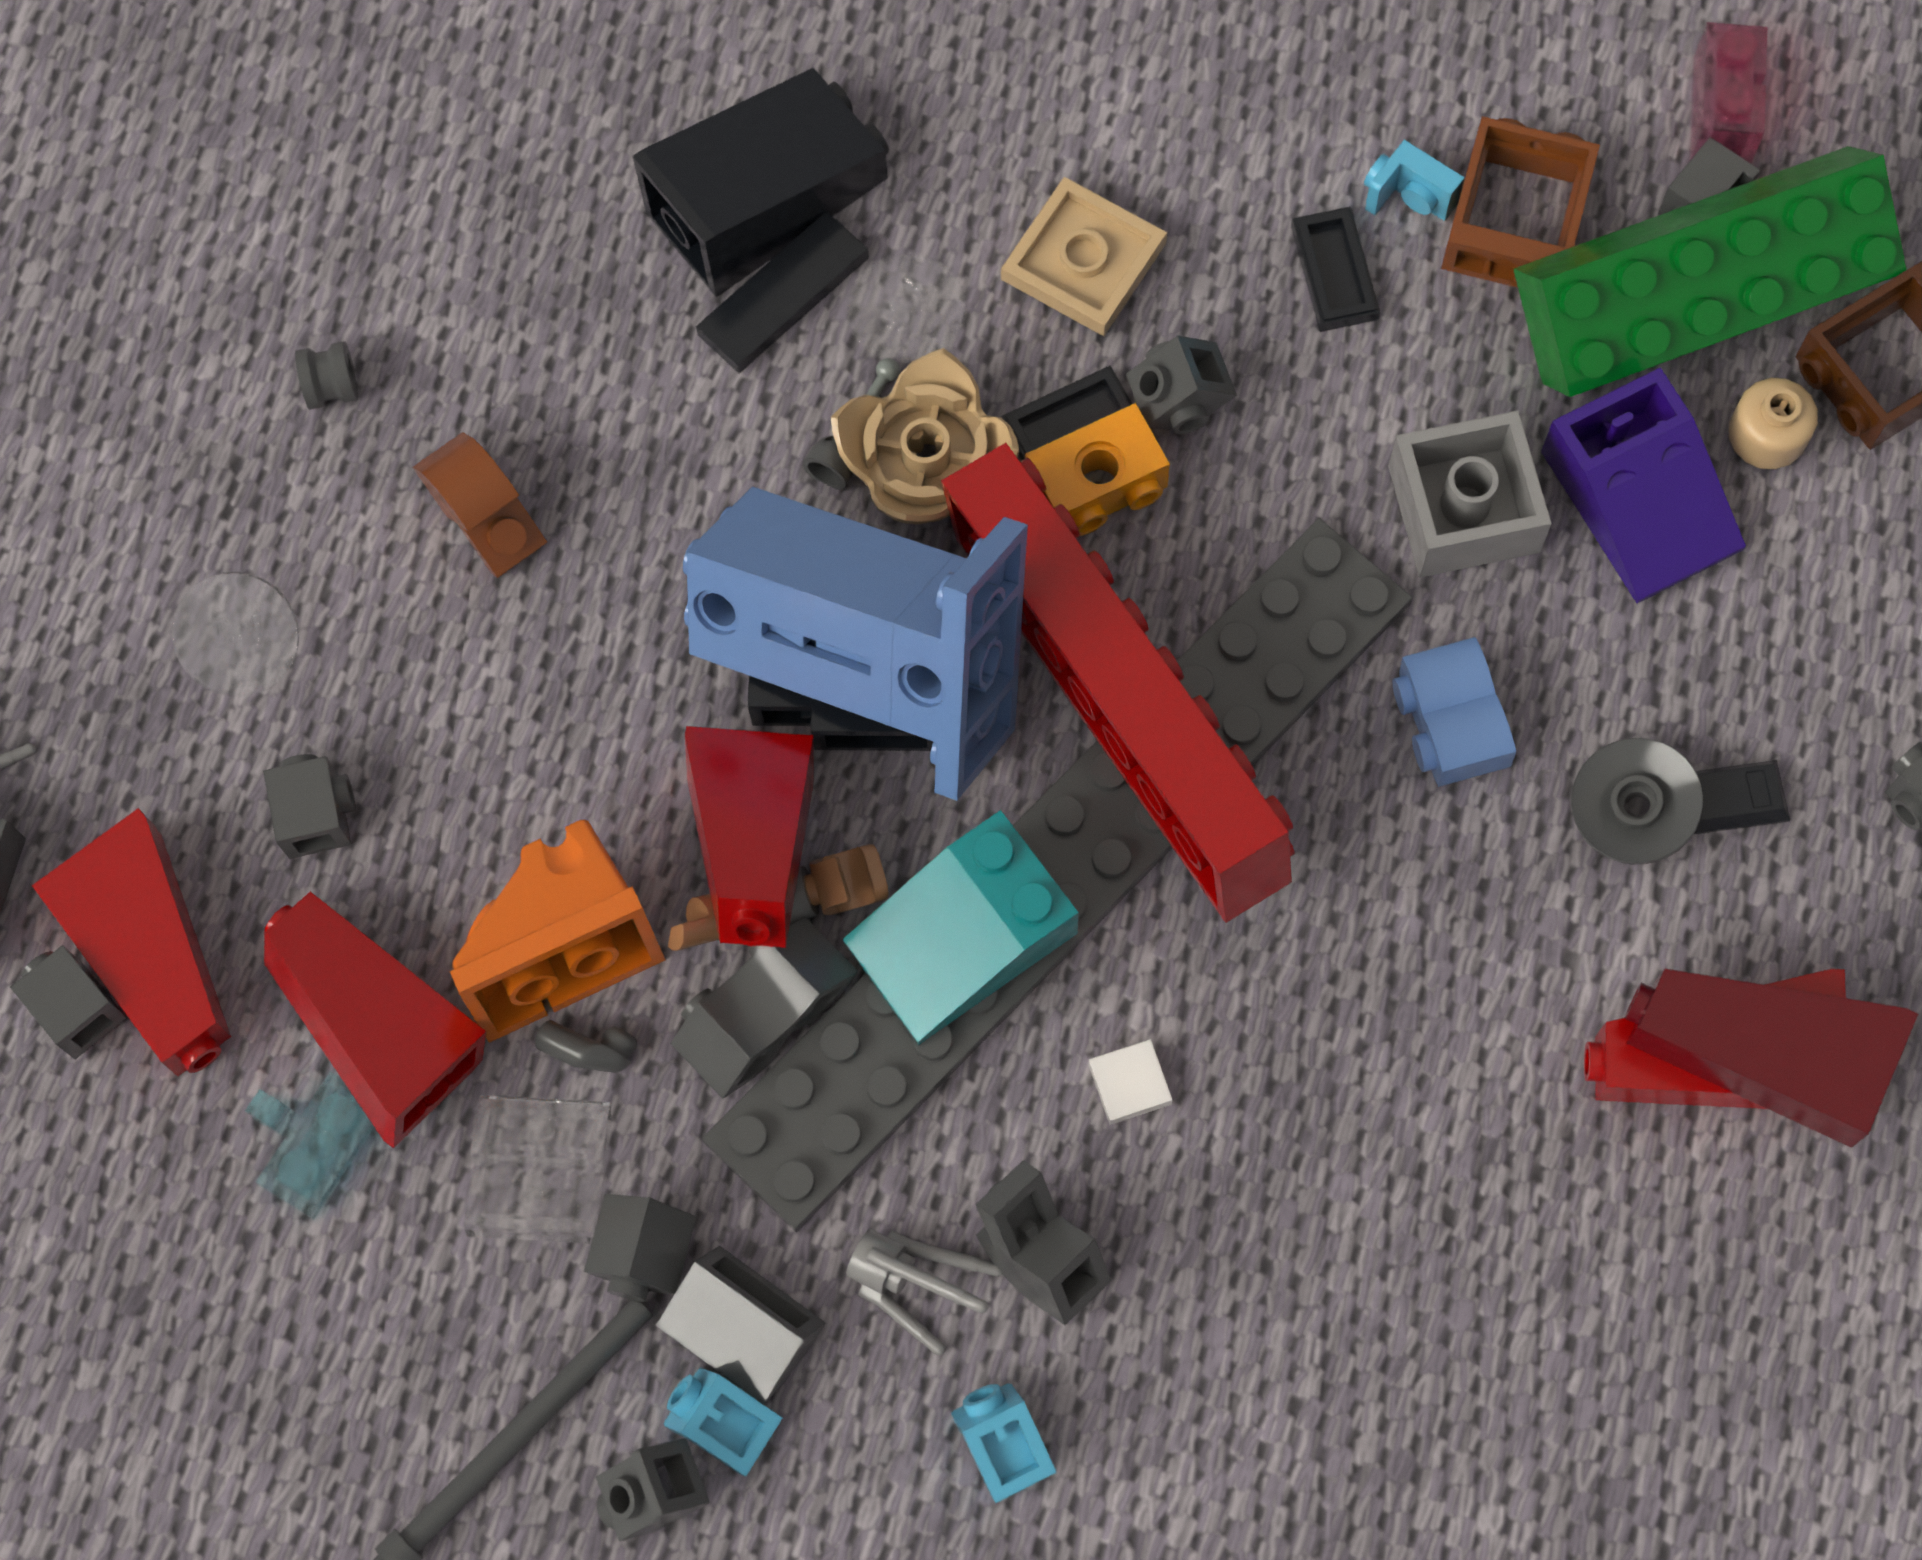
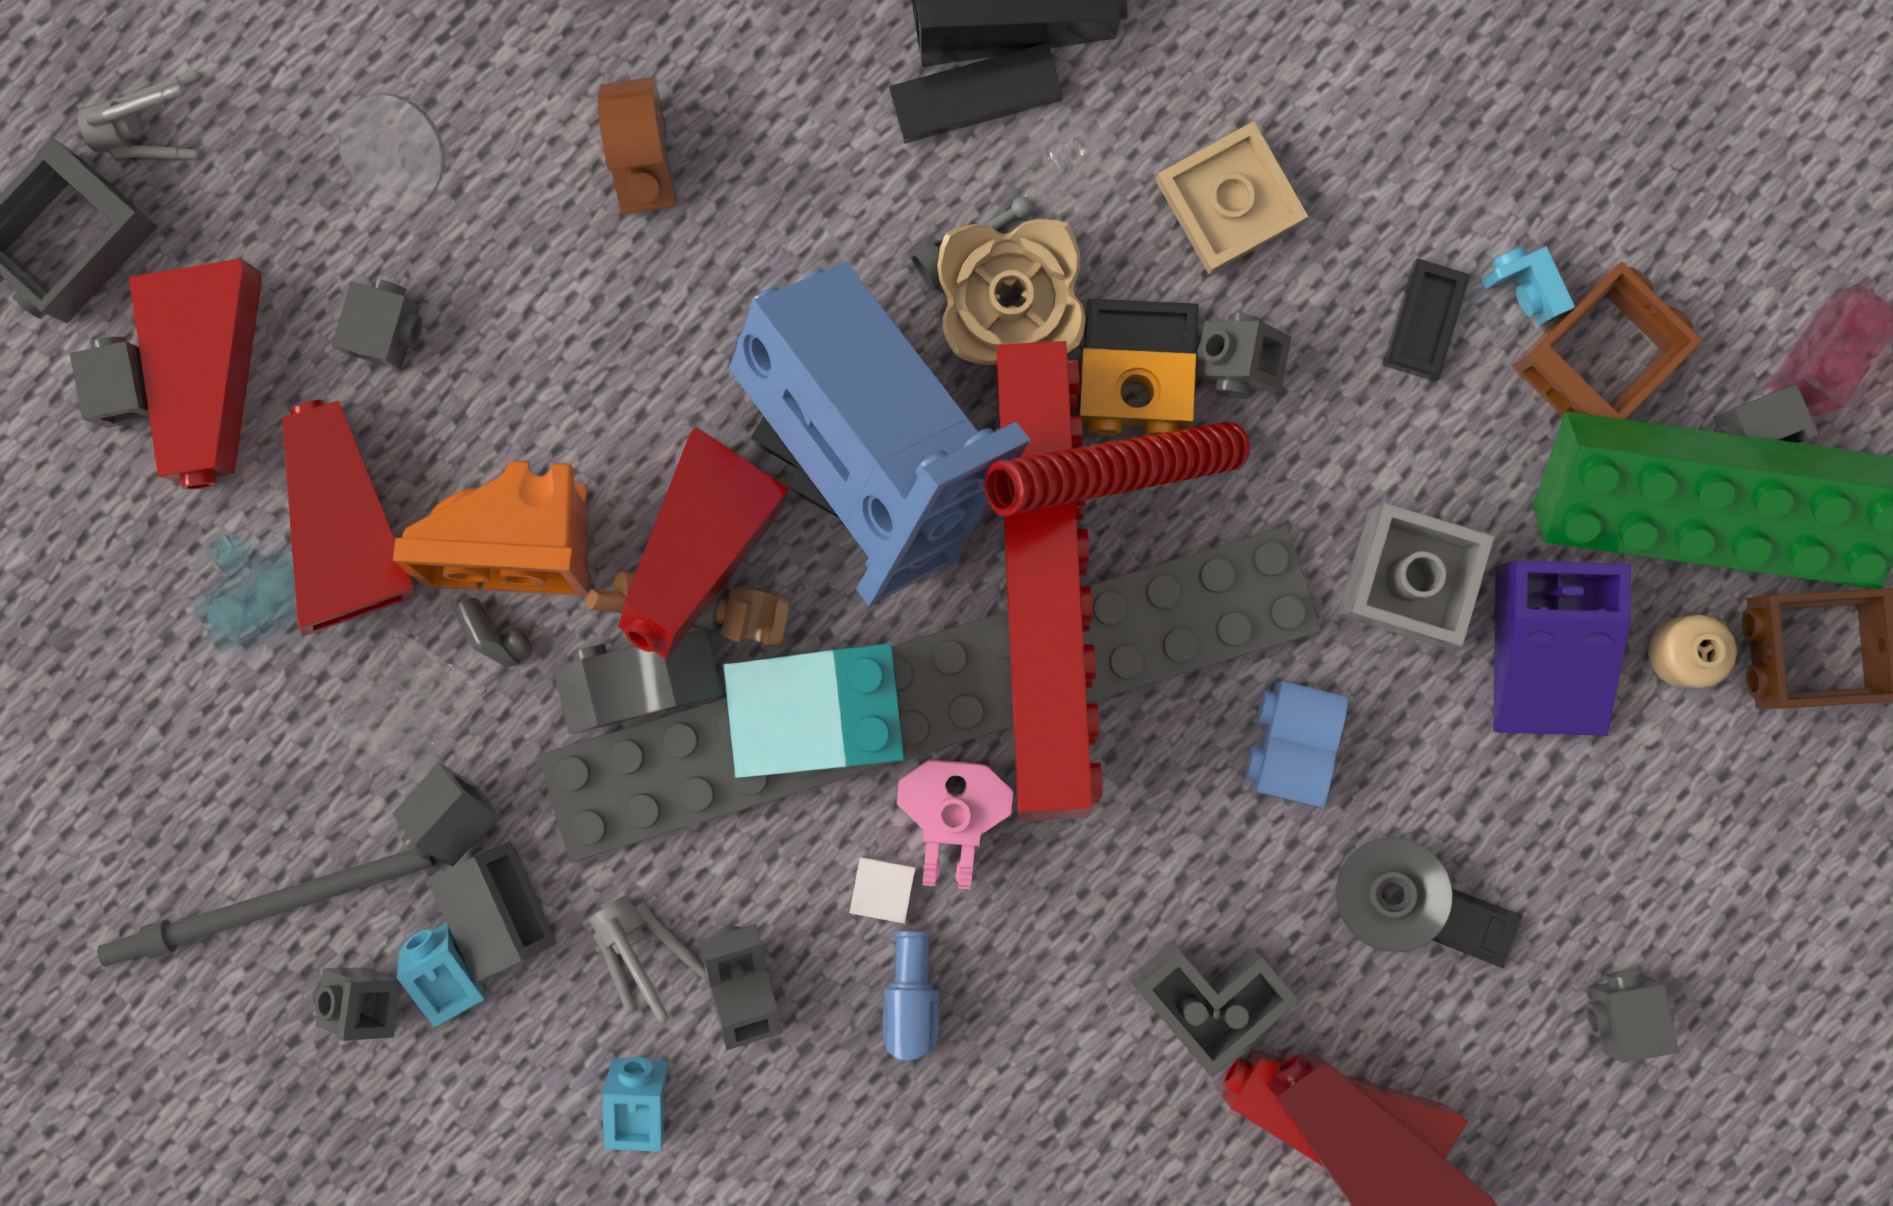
camera: 20 degrees right, 15 degrees up
(1122, 524) = (1114, 467): none -> red piece
(1155, 961) = (950, 816): none -> bright pink hinge
(1224, 1171) = (911, 1002): none -> medium blue arm
(1525, 1014) = (1217, 1017): none -> dark grey brick

